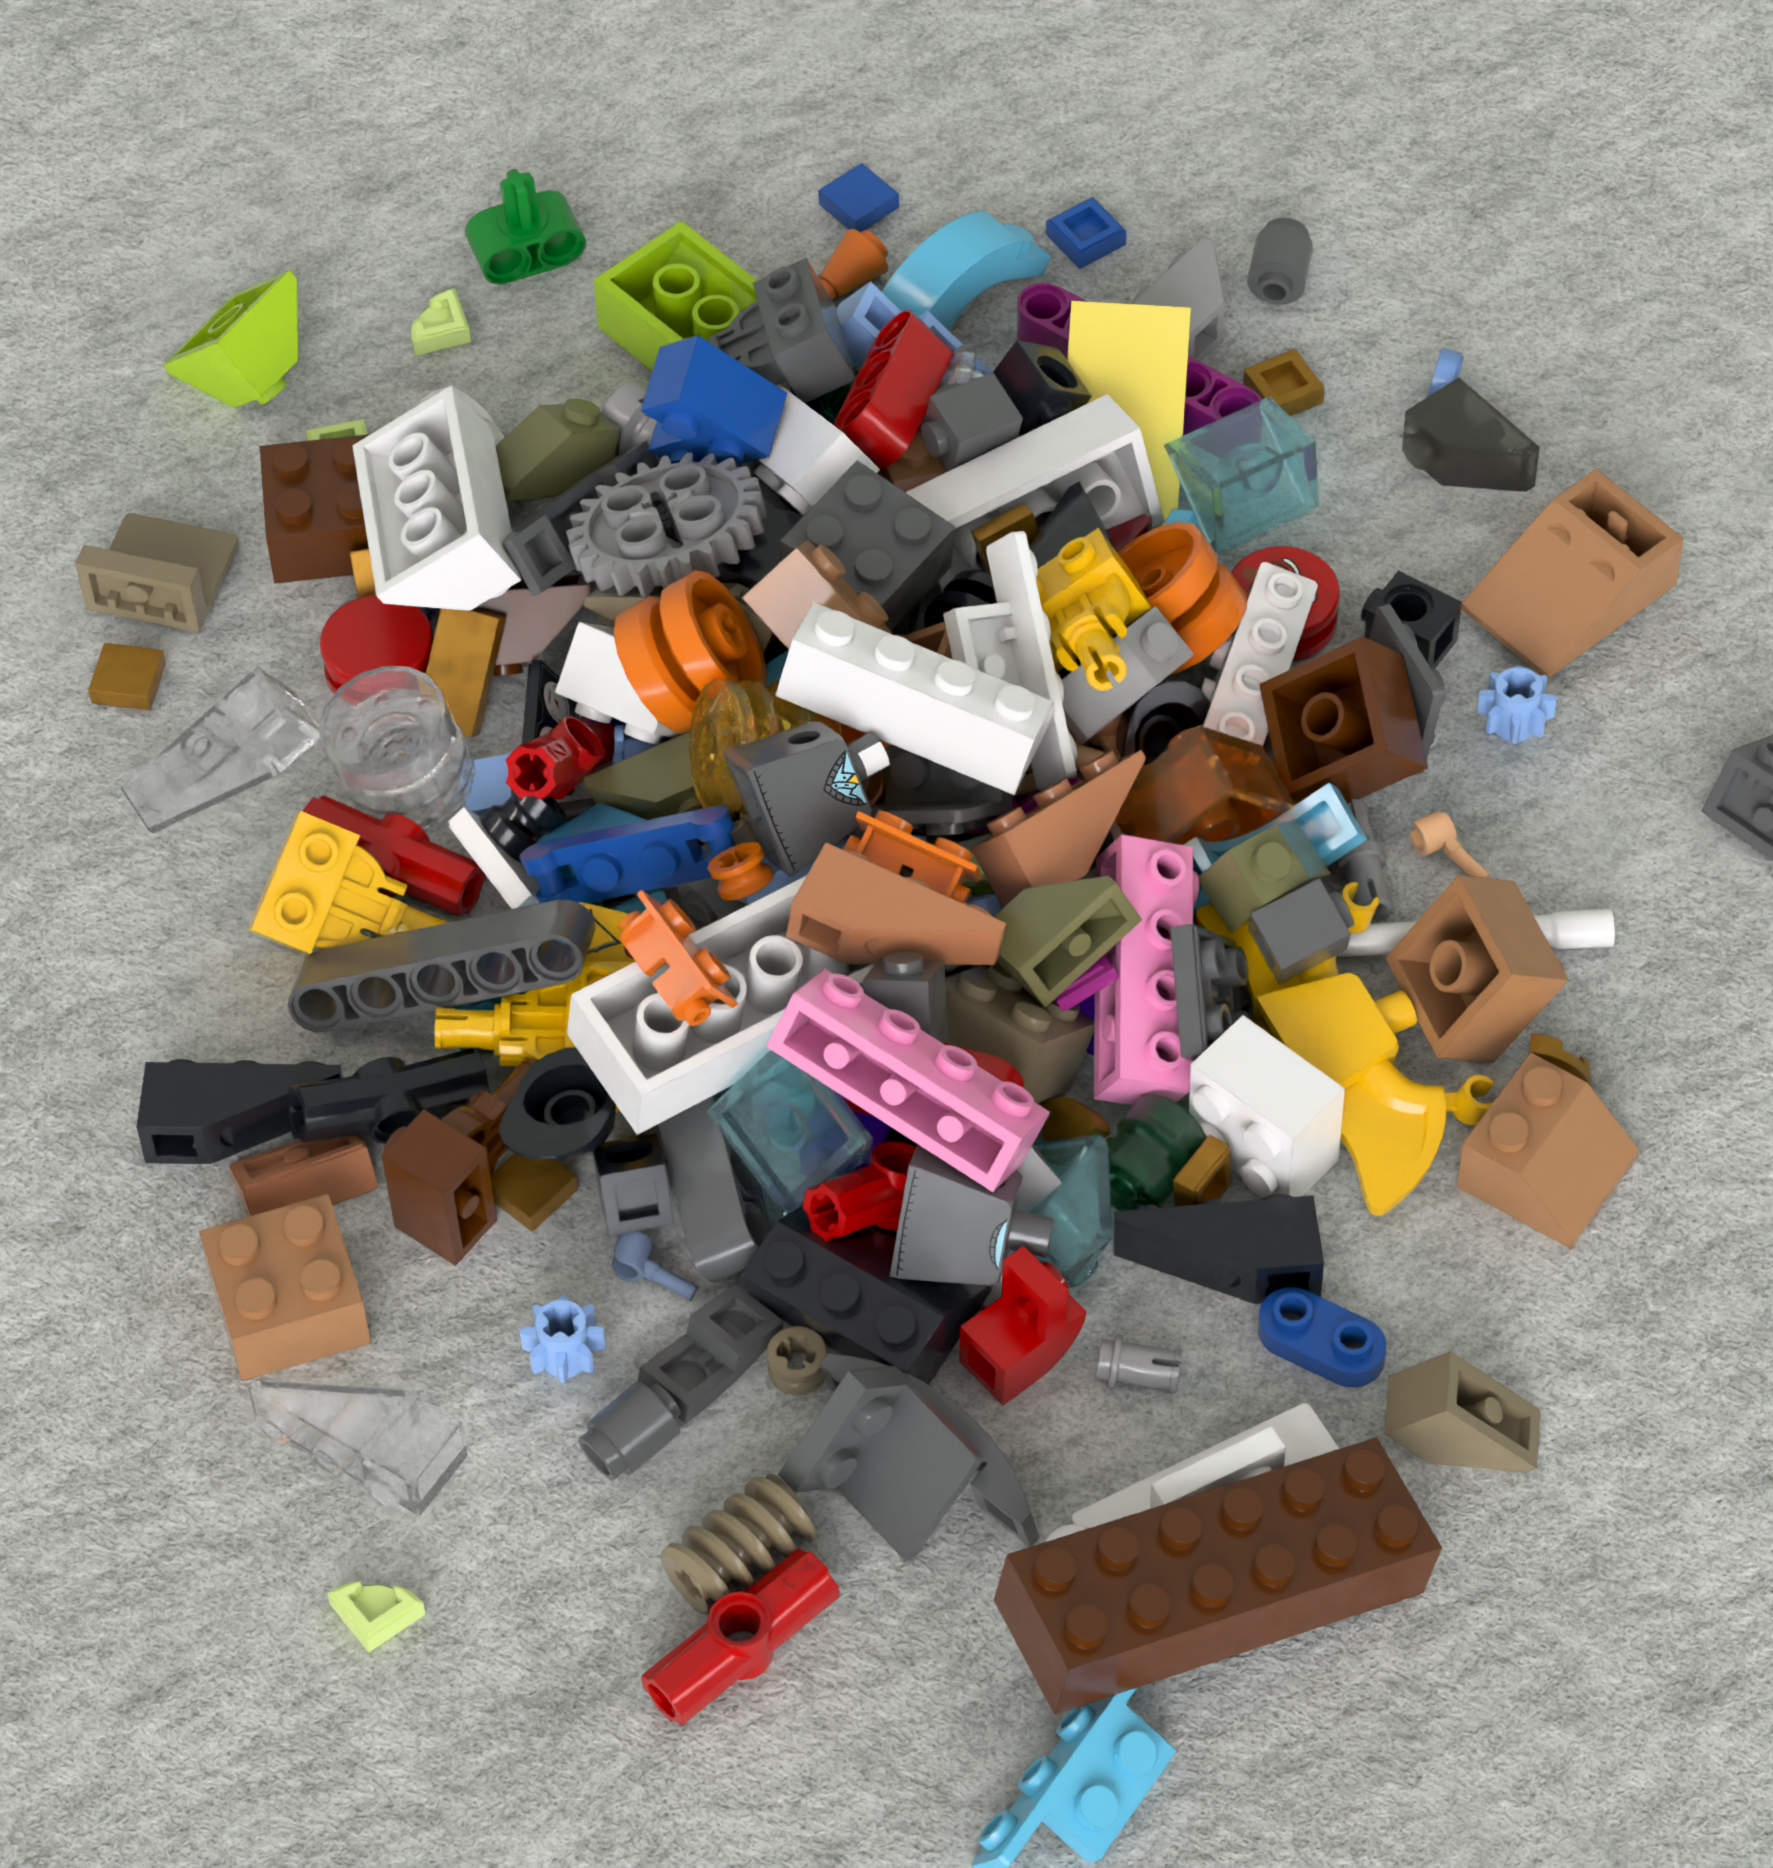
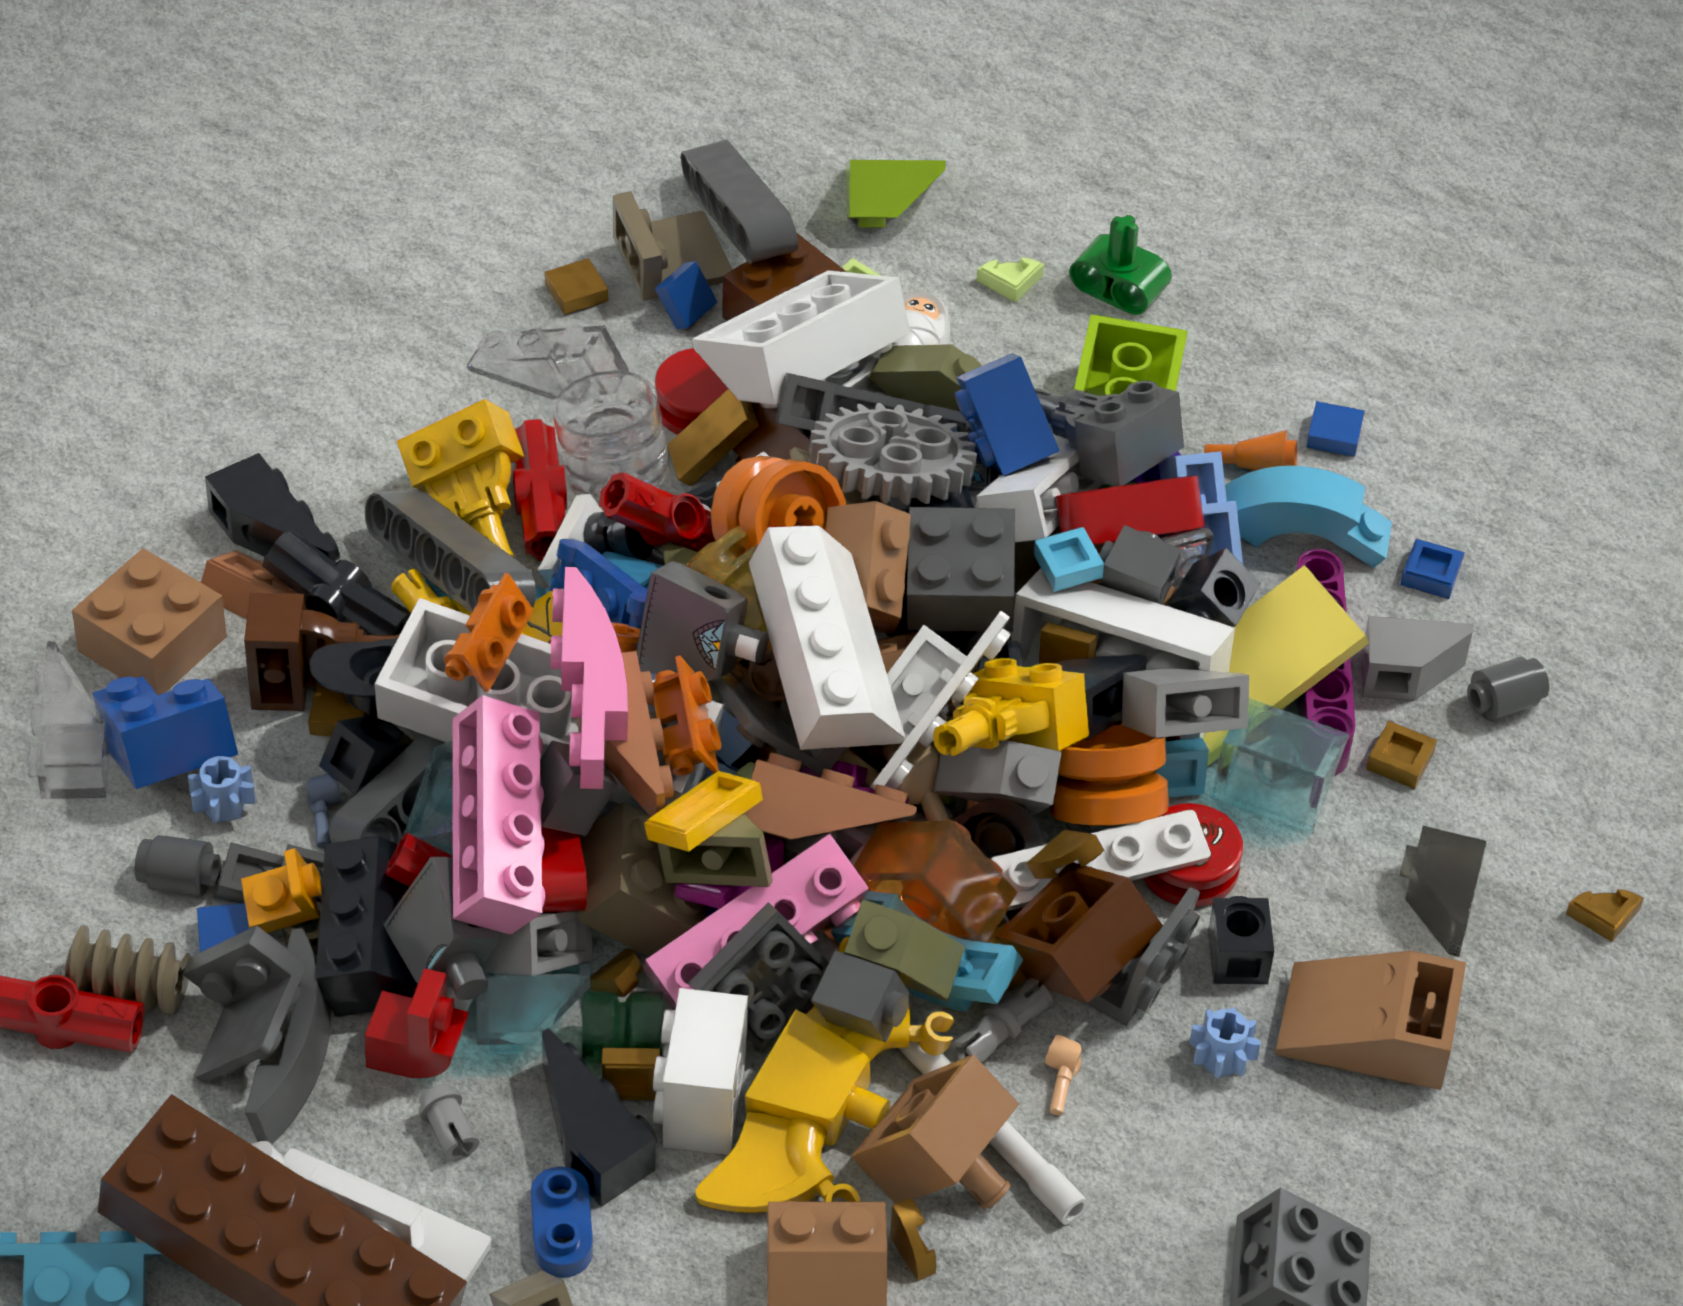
camera: 50 degrees right, 5 degrees down
(173, 467) = (739, 201): none -> dark grey beam
(236, 590) = (686, 295): none -> blue tile
(472, 1346) = (166, 732): none -> blue brick
(745, 1434) = (220, 923): none -> blue tile
(765, 1349) = (283, 894): none -> light orange bracket
(826, 875) = (592, 671): none -> bright pink slope
(925, 464) = (1068, 559): none -> medium azure plate
(1031, 905) = (703, 811): none -> yellow tile
(1156, 487) = (1184, 701): none -> light grey slope
(1255, 677) = (1064, 850): none -> pearl gold tile
(1446, 370) = (1501, 837): medium blue tile -> none
(1573, 352) = (1605, 912): none -> pearl gold tile

